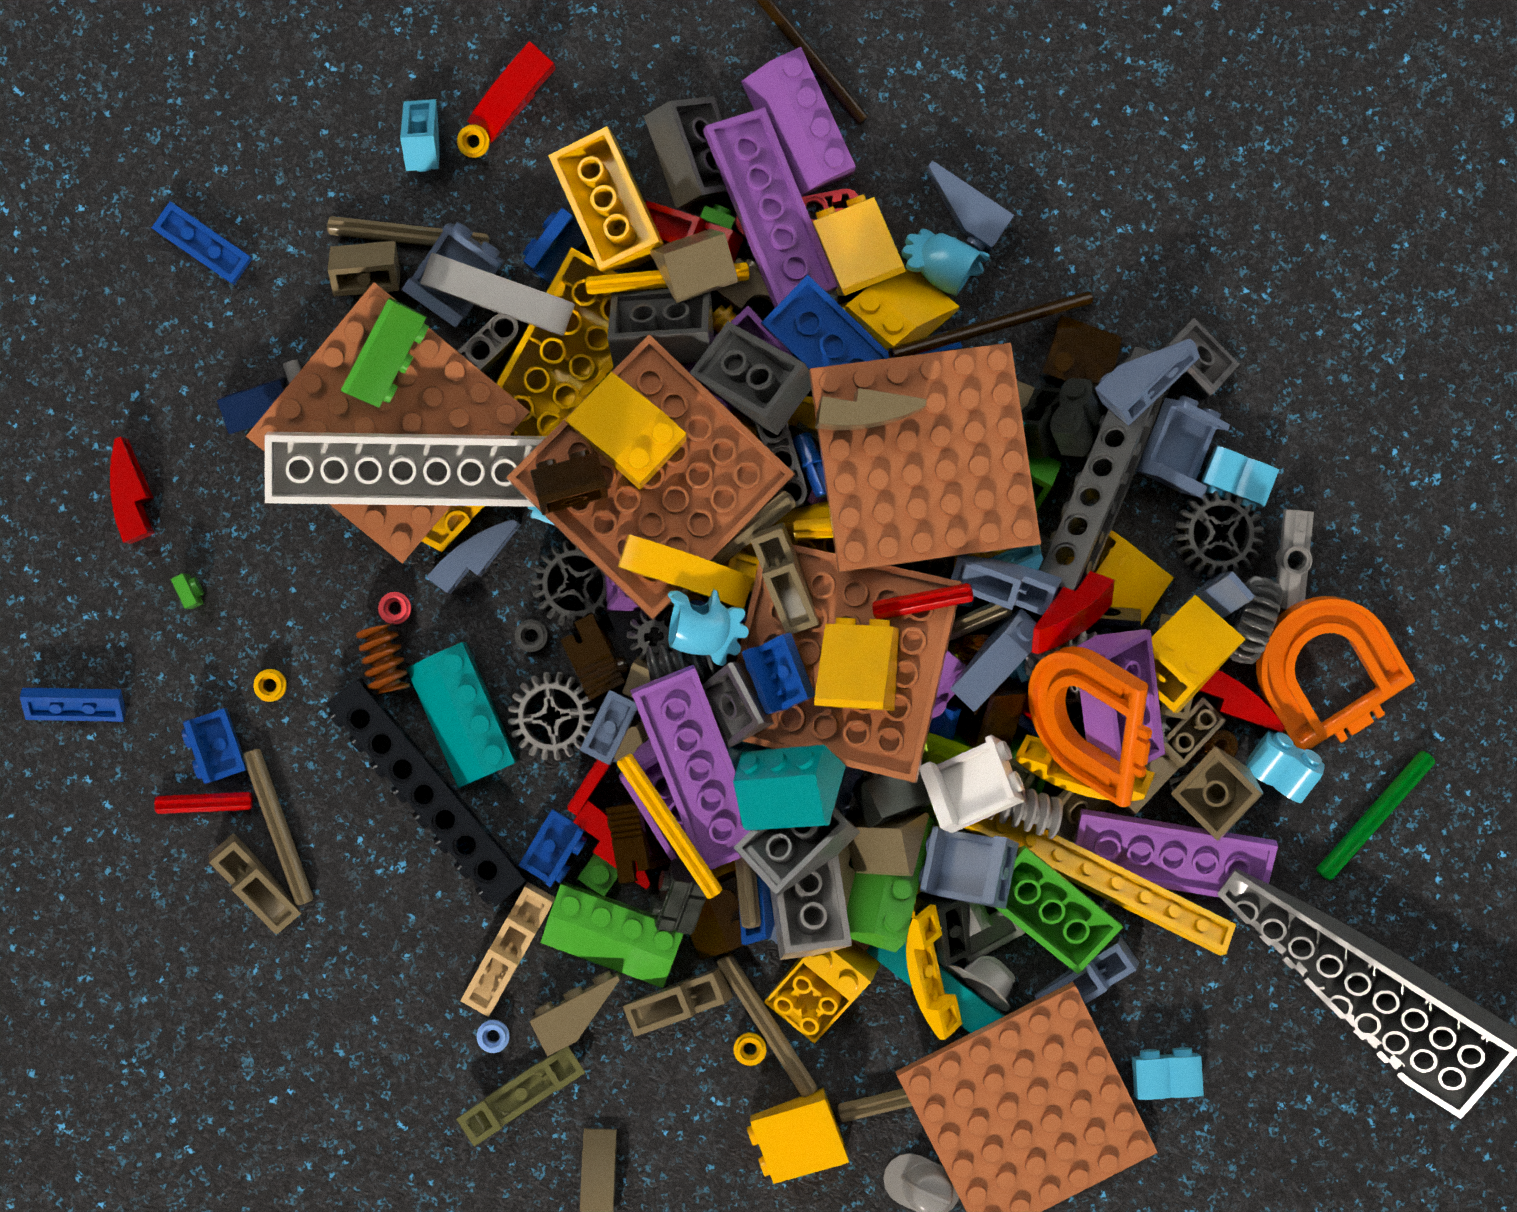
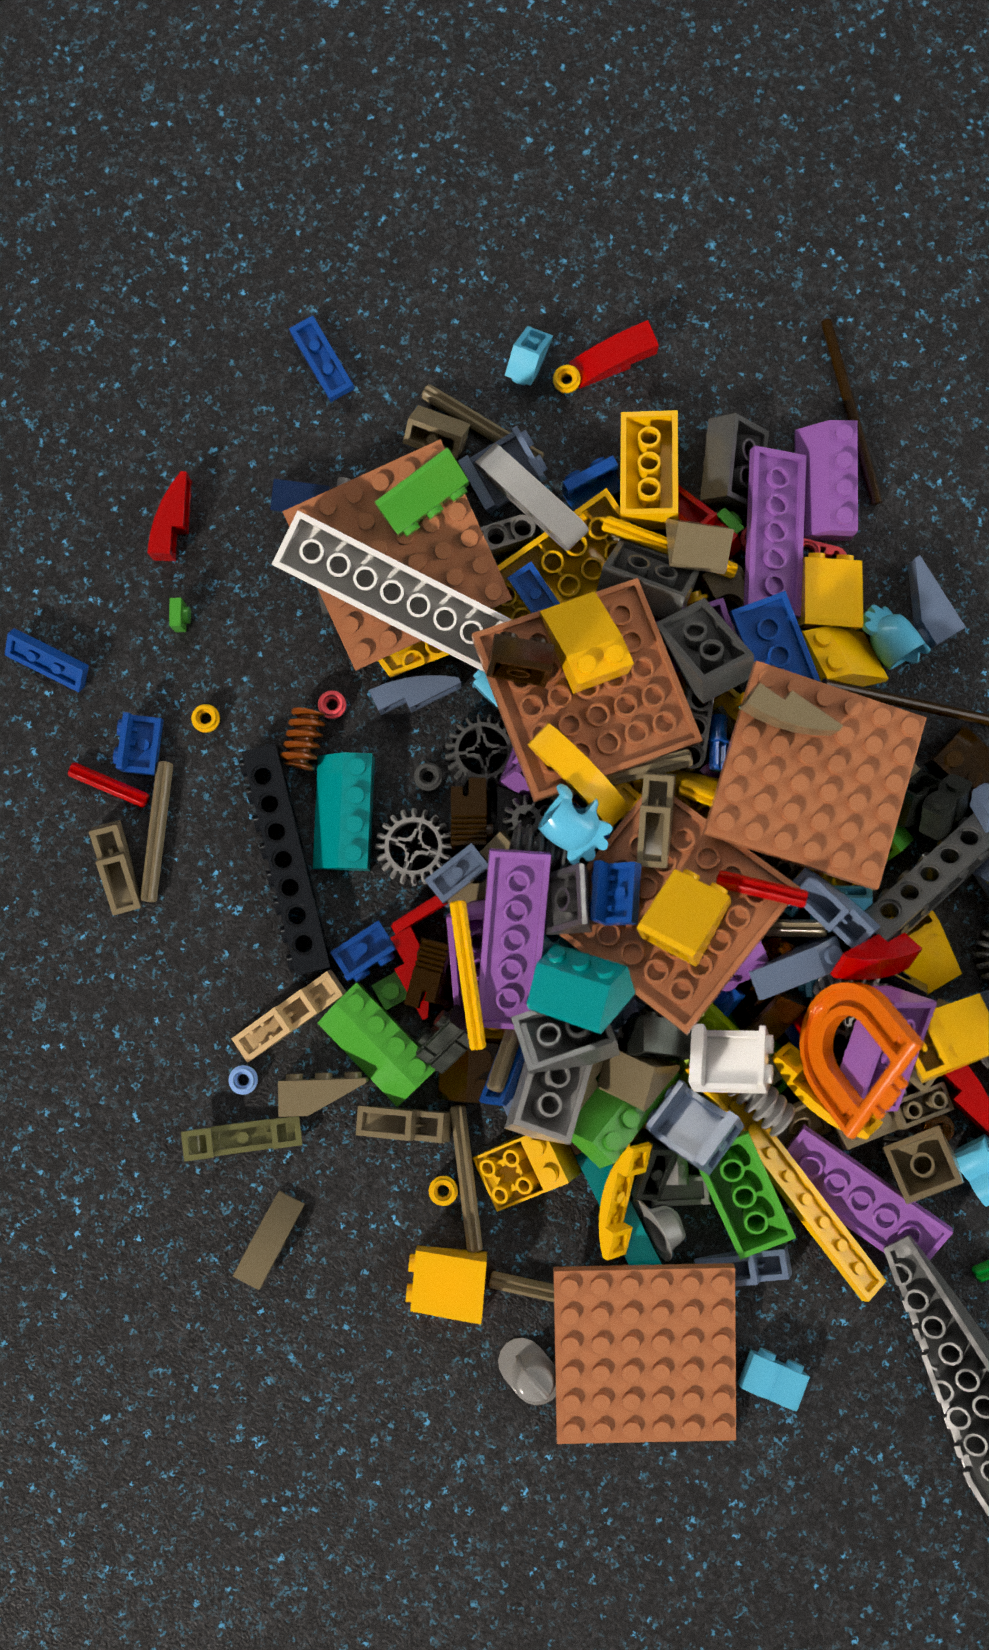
camera: 30 degrees right, 5 degrees down
(548, 392) = (532, 588): none -> blue plate

